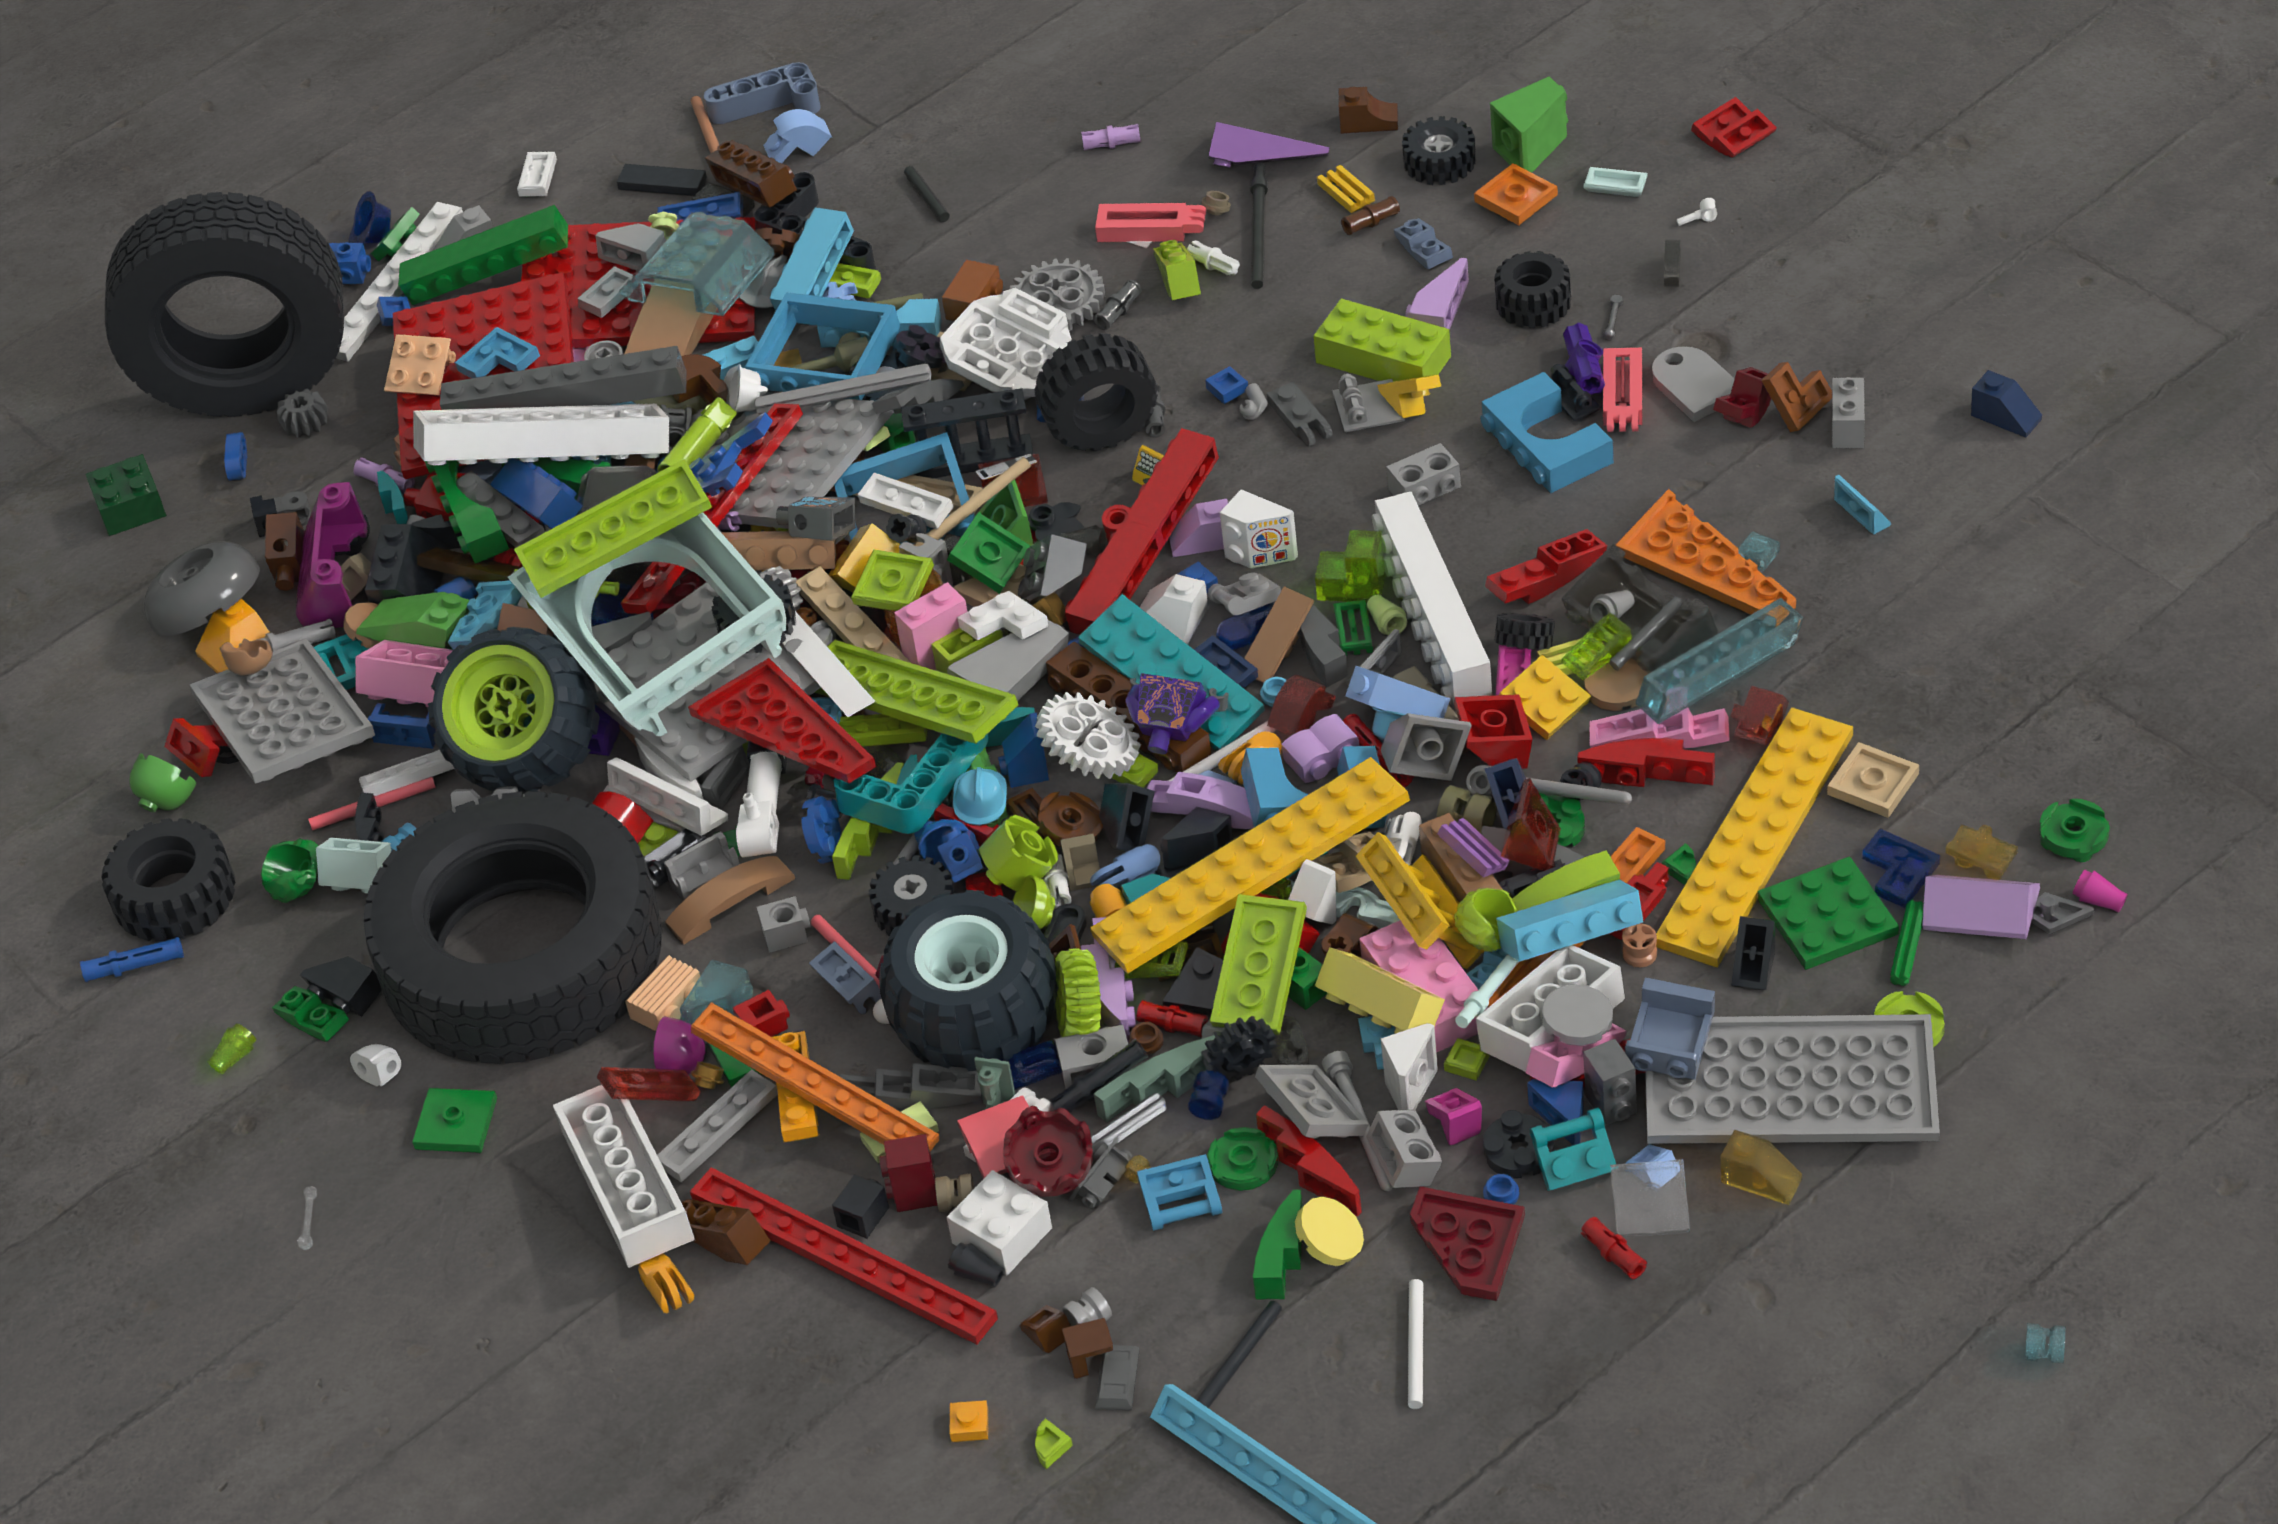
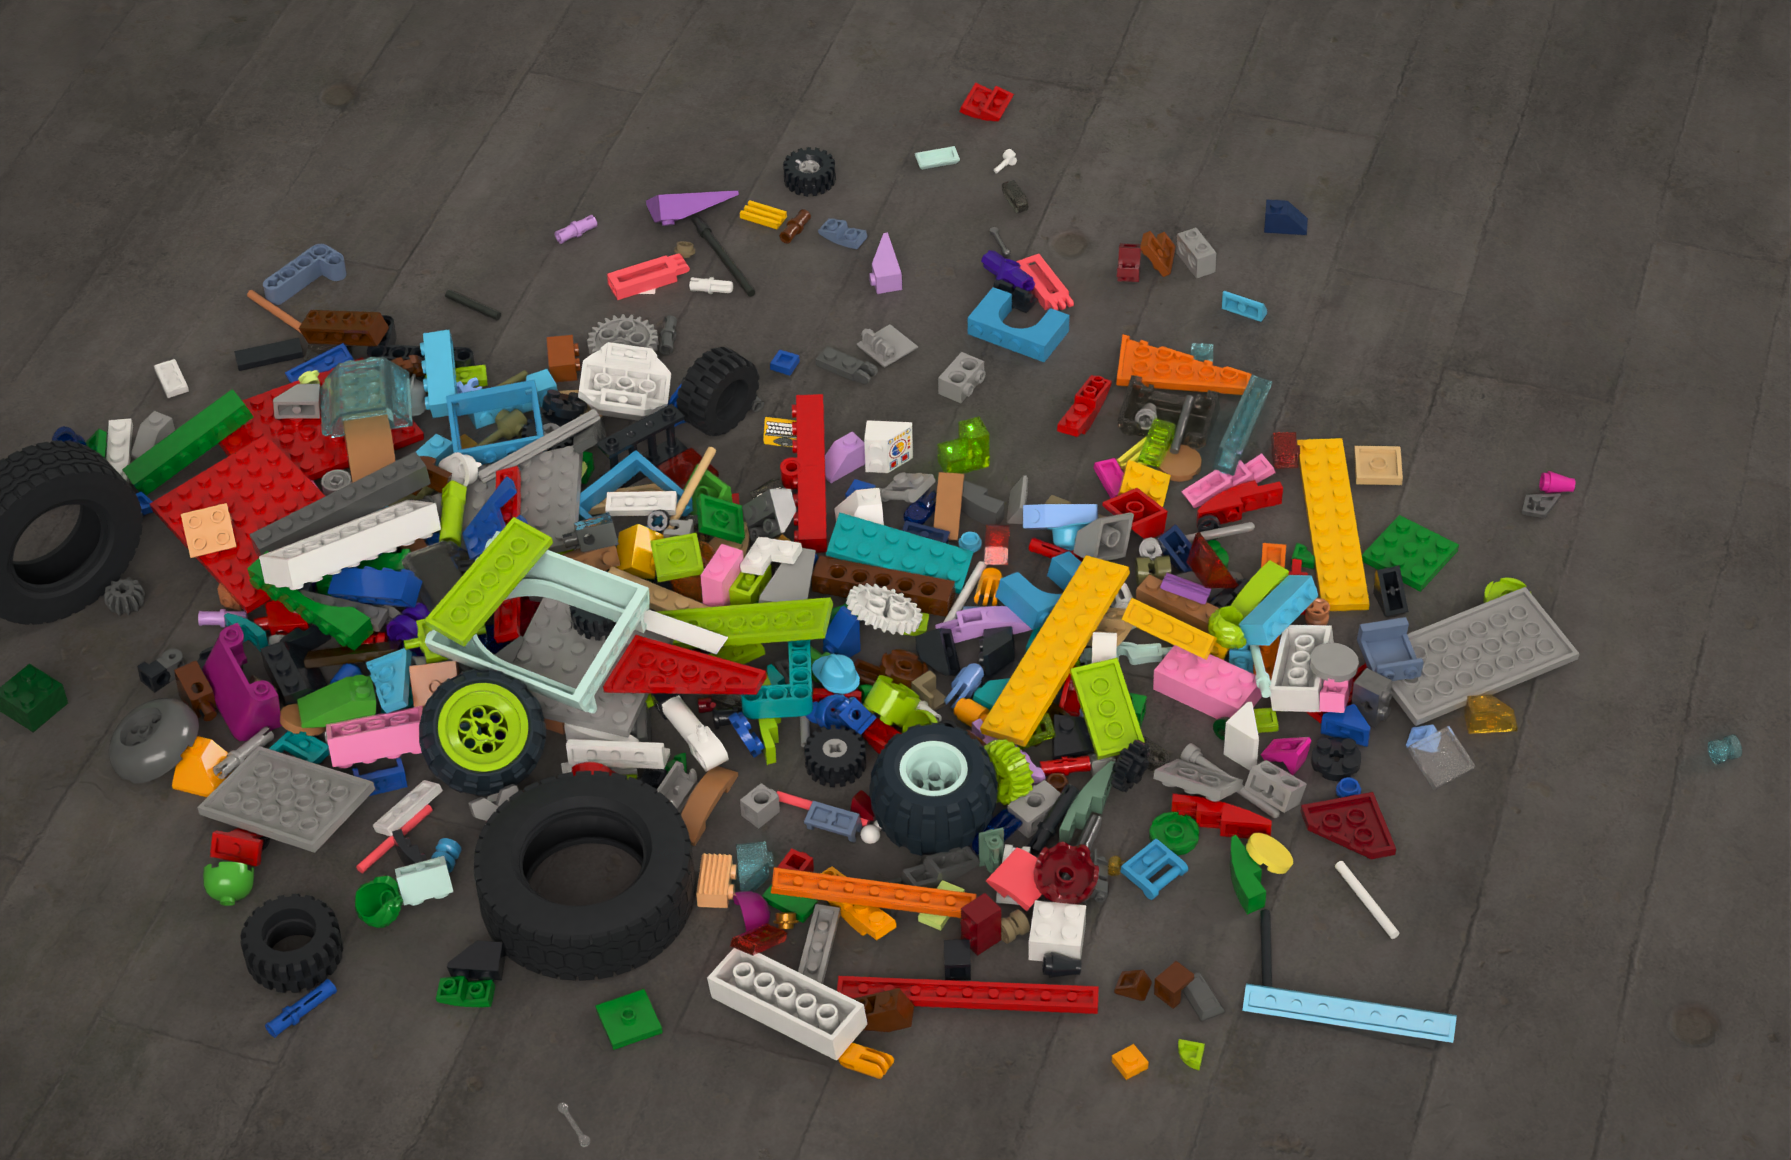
camera: 35 degrees left, 0 degrees up
(232, 1047) = (428, 1034): clear neon green cone -> none
(235, 456) = (95, 643): blue beam -> none
(247, 658) = (233, 771): medium nougat hair -> none
(376, 1063) = (543, 1005): white piece -> none
(496, 349) = (264, 499): dark azure plate -> none
(604, 293) = (305, 438): light grey plate -> none
(796, 129) = (350, 290): light blue brick -> none
(1001, 467) = (678, 462): white sticker -> none
(1054, 520) = (740, 487): black plate -> none
(1088, 1308) = (1156, 961): light grey wheel -> none
(1170, 708) = (924, 573): dark purple torso -> none
(1177, 269) = (694, 300): lime slope -> none
(1208, 1095) = (1127, 805): clear blue wheel -> none
(1255, 404) = (812, 367): light grey arm -> none
(1318, 749) = (1030, 562): lavender brick -> none
(1346, 934) = (1139, 677): reddish brown piece -> none
(1355, 645) = (973, 477): green tile -> none
(1364, 113) = (739, 163): reddish brown arch -> none
(1371, 1038) = (1201, 726): medium azure plate -> none
(1376, 992) = (1194, 697): light yellow brick -> none
(1380, 343) = (870, 304): lime brick -> none
(1386, 615) = (1004, 470): yellowish green cone -> none
(1408, 394) = (911, 328): yellow slope -> none
(1431, 600) = (1038, 451): white brick -> none
(1515, 194) = (880, 184): orange plate -> none
(1524, 631) = (1104, 449): black tyre -> none
(1529, 123) = (860, 137): bright green slope -> none
(1532, 289) = (942, 239): black tyre -> none
(1576, 1161) = (1382, 752): teal plate -> none
(1613, 1248) = (1441, 795): red pin -> none
(1693, 382) = (1083, 265): light grey tile -> none
(1905, 866) = (1436, 506): clear blue plate -> none
(1907, 943) = (1470, 553): green axle -> none
(1979, 906) = (1497, 516): lavender slope -> none
(1981, 849) = (1475, 482): clear yellow hips -> none
(2074, 844) = (1525, 450): green plate -> none

